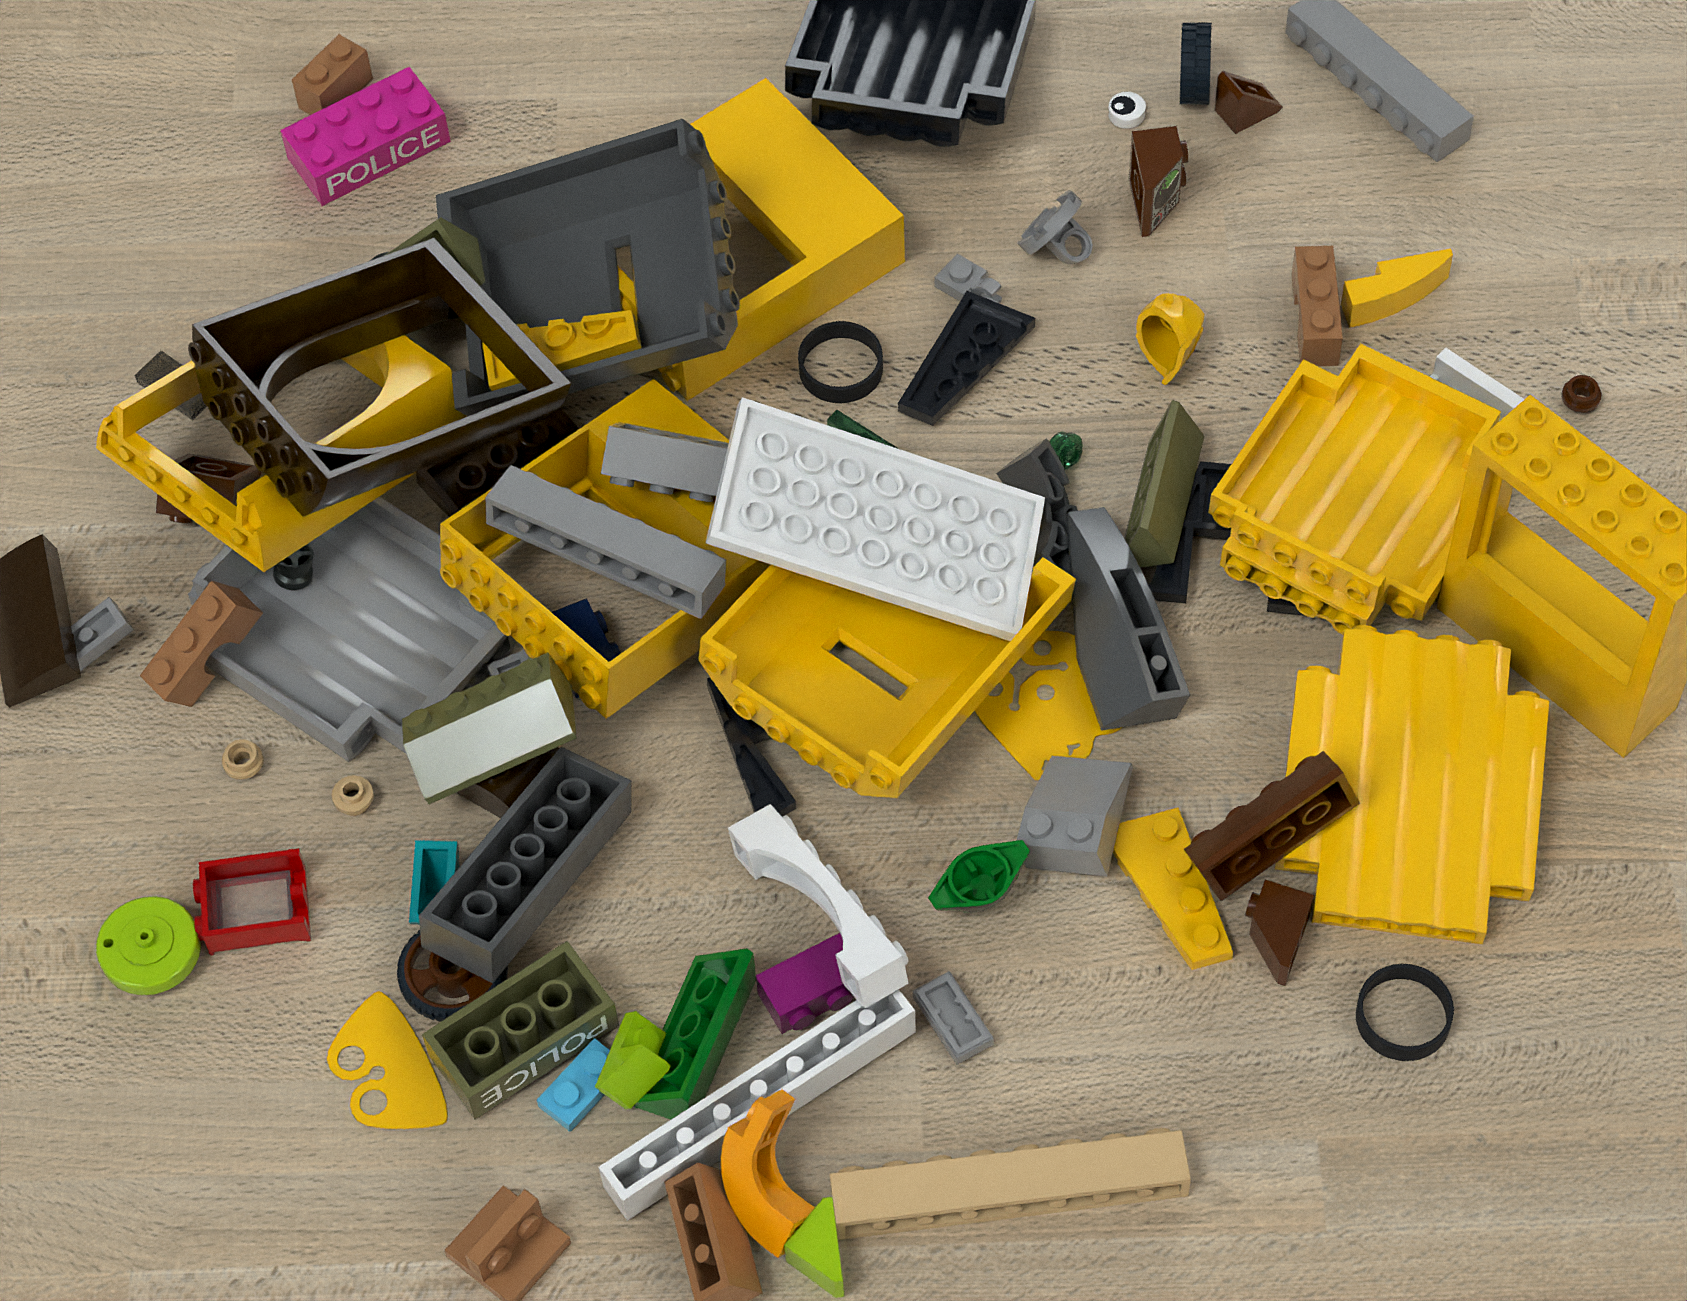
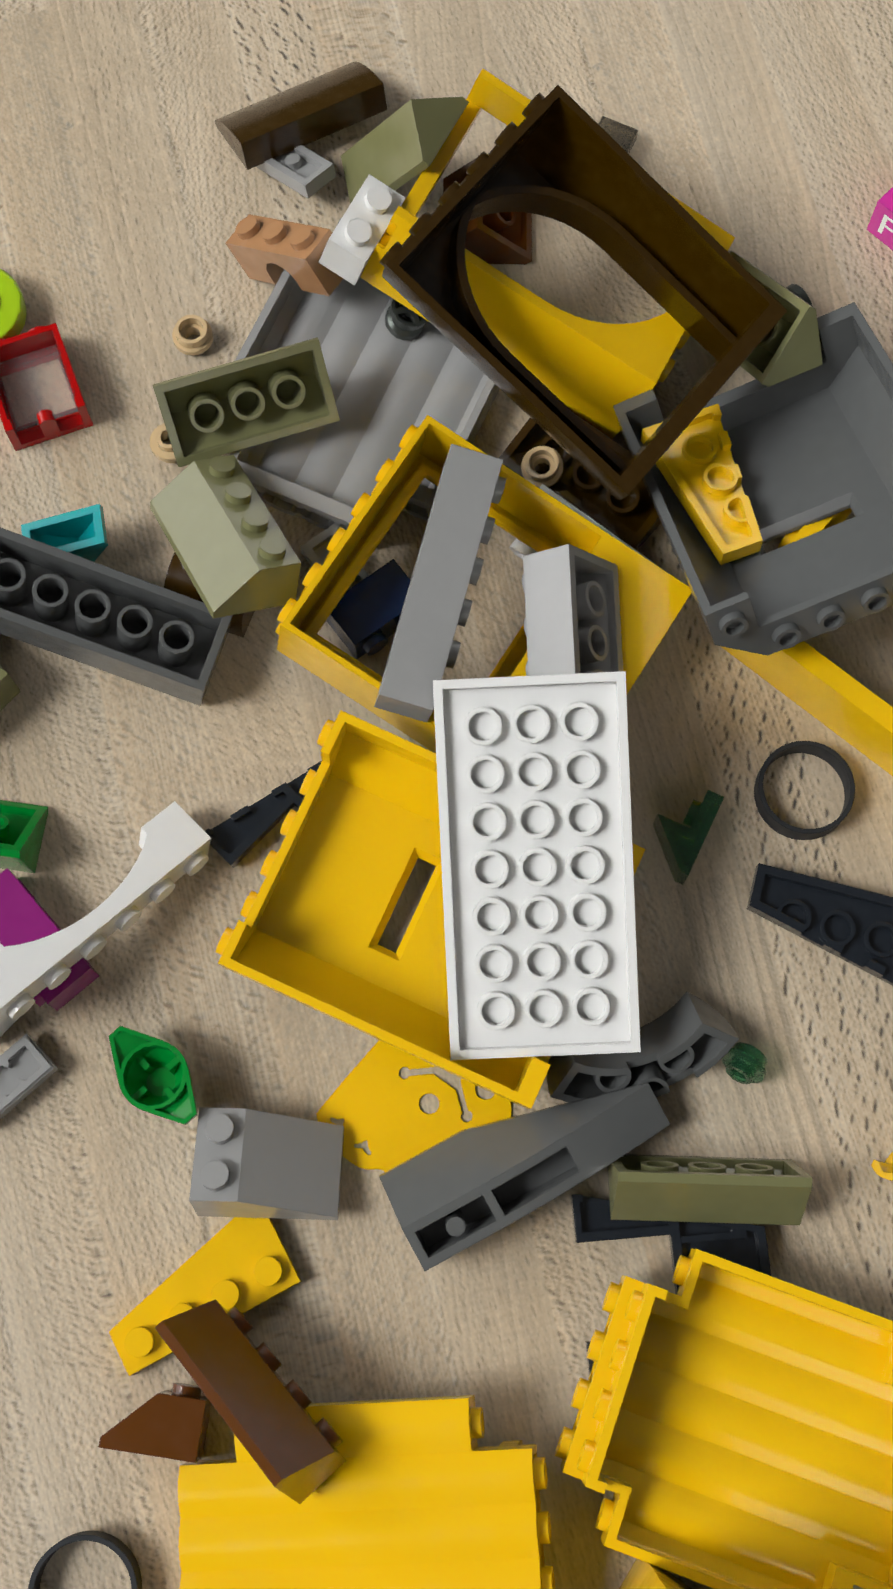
camera: 75 degrees right, 15 degrees up
(141, 524) = (402, 143): none -> olive slope
(226, 550) = (360, 229): none -> white brick
(356, 698) = (247, 402): none -> olive slope
(482, 476) = (539, 455): none -> tan plate

